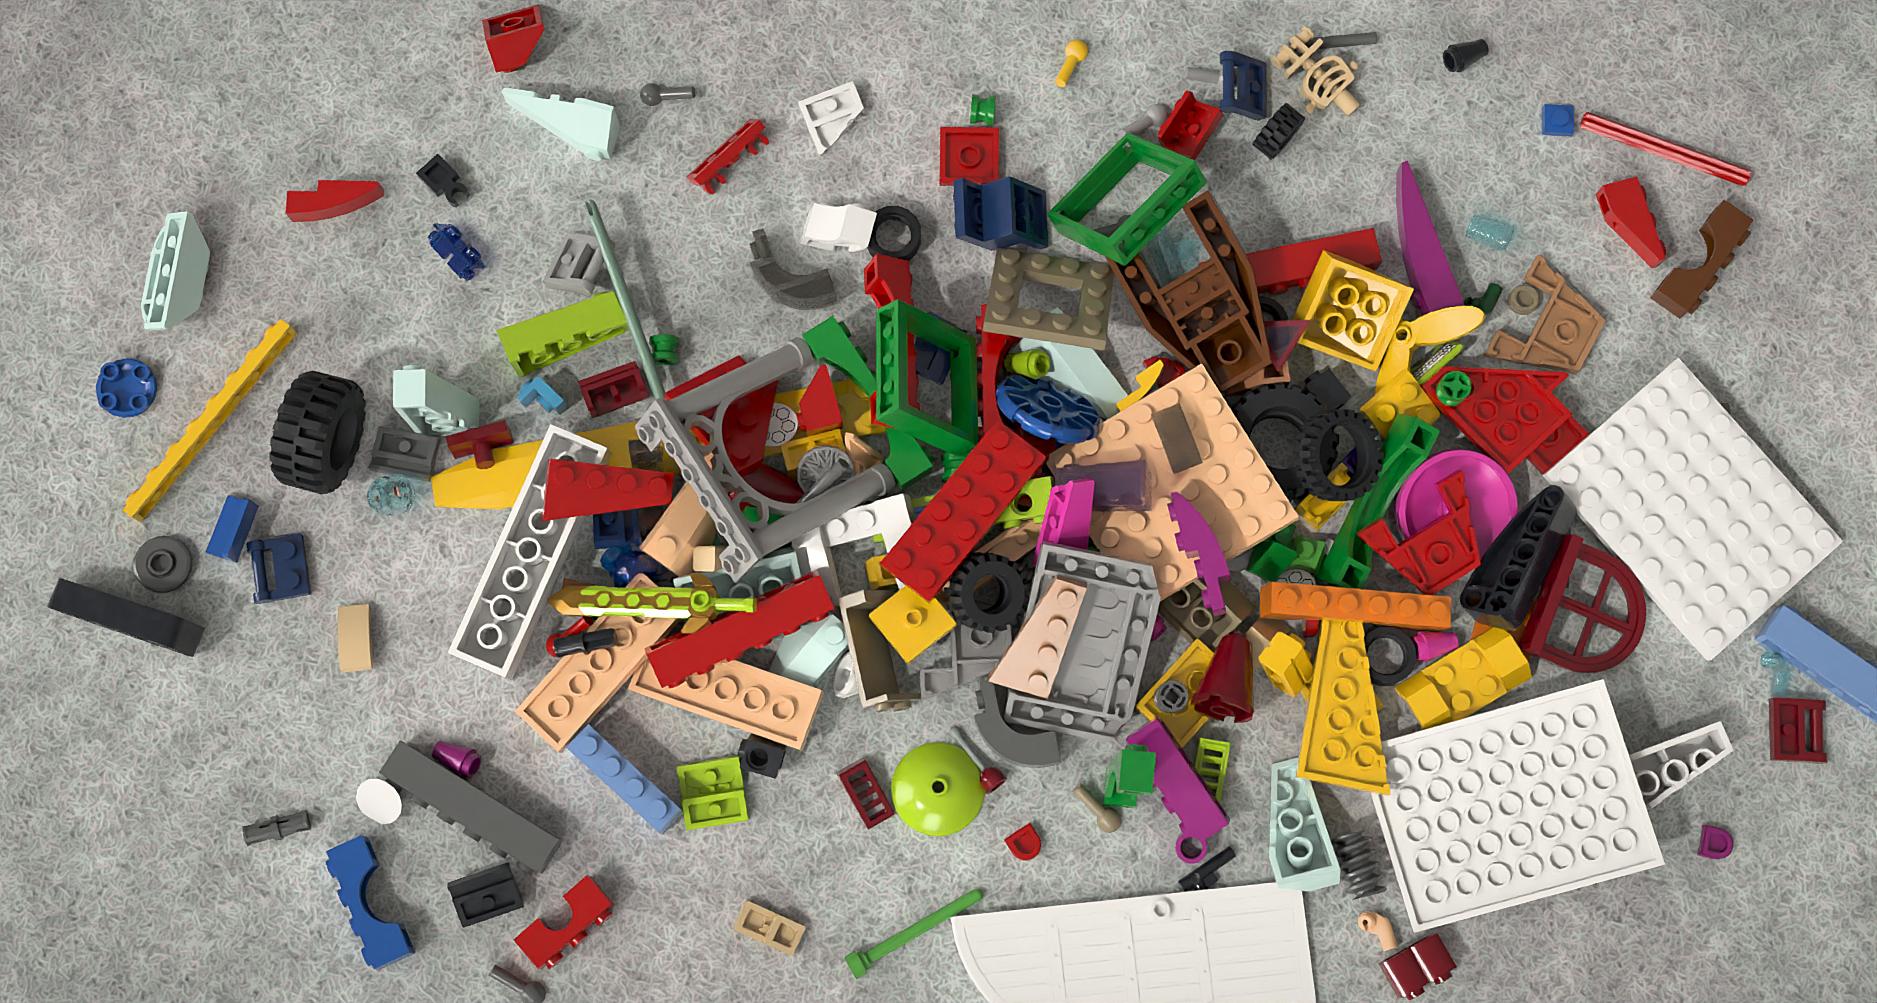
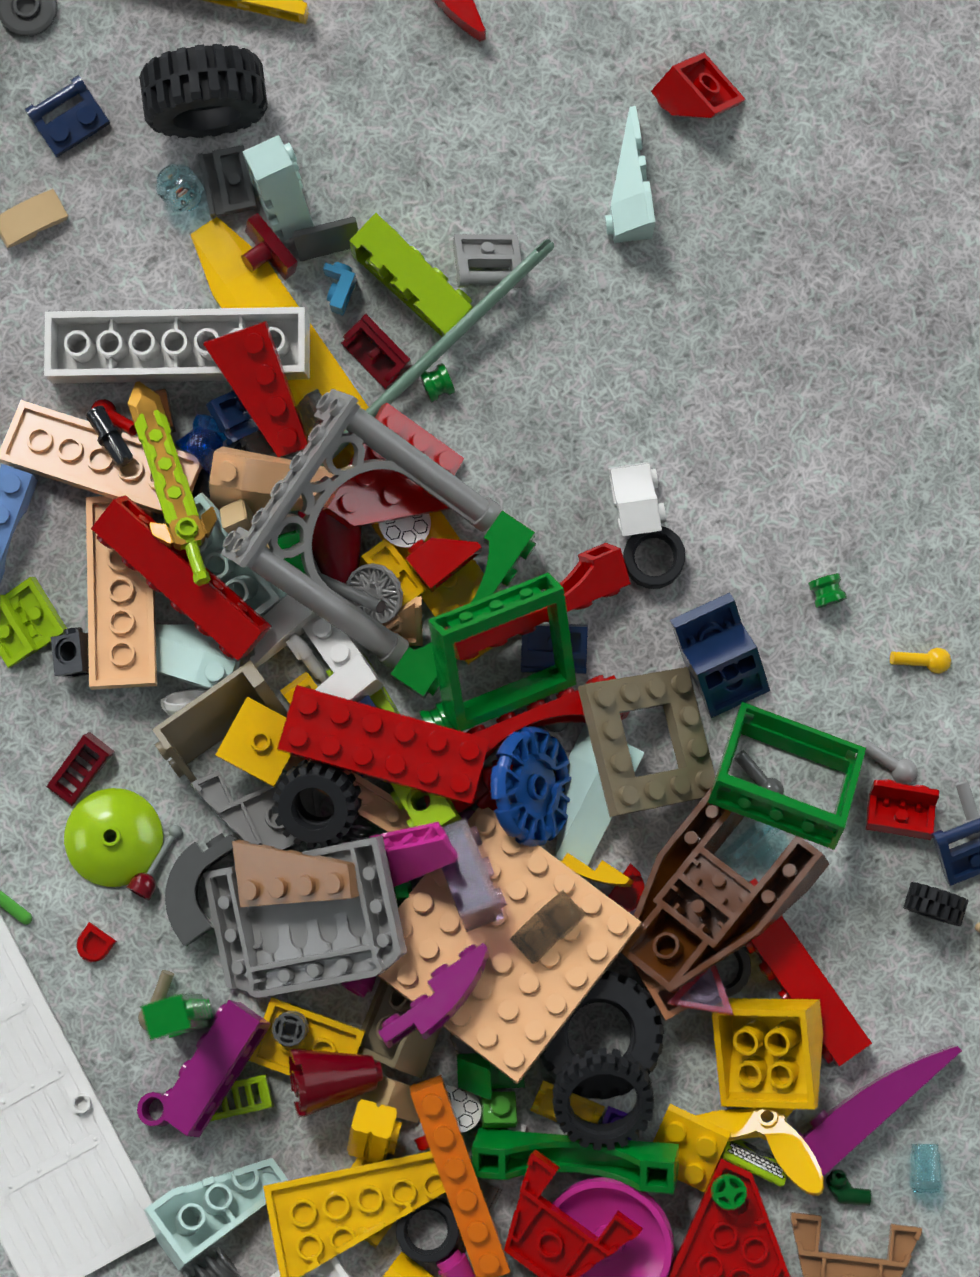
camera: 70 degrees right, 5 degrees up
(232, 528) = (87, 55): blue panel -> none
(442, 178) = (520, 88): black plate -> none
(448, 240) = (459, 124): clear blue hinge -> none
(495, 390) = (325, 238): none -> dark grey slope
(653, 94) = (700, 254): dark grey bar -> none
(728, 154) = (666, 355): red plate -> none
(791, 290) = (553, 488): clear smoke arch -> none
(830, 114) = (755, 440): white wing -> none
(847, 556) = (305, 653): none -> white piece
(969, 154) = (773, 598): red tile -> none
(1029, 363) = (575, 749): lime cone -> none
(1206, 870) = (139, 1134): black hose -> none
(1327, 388) = (676, 1062): black brick -> none
(1523, 299) = (868, 1232): dark tan tile -> none

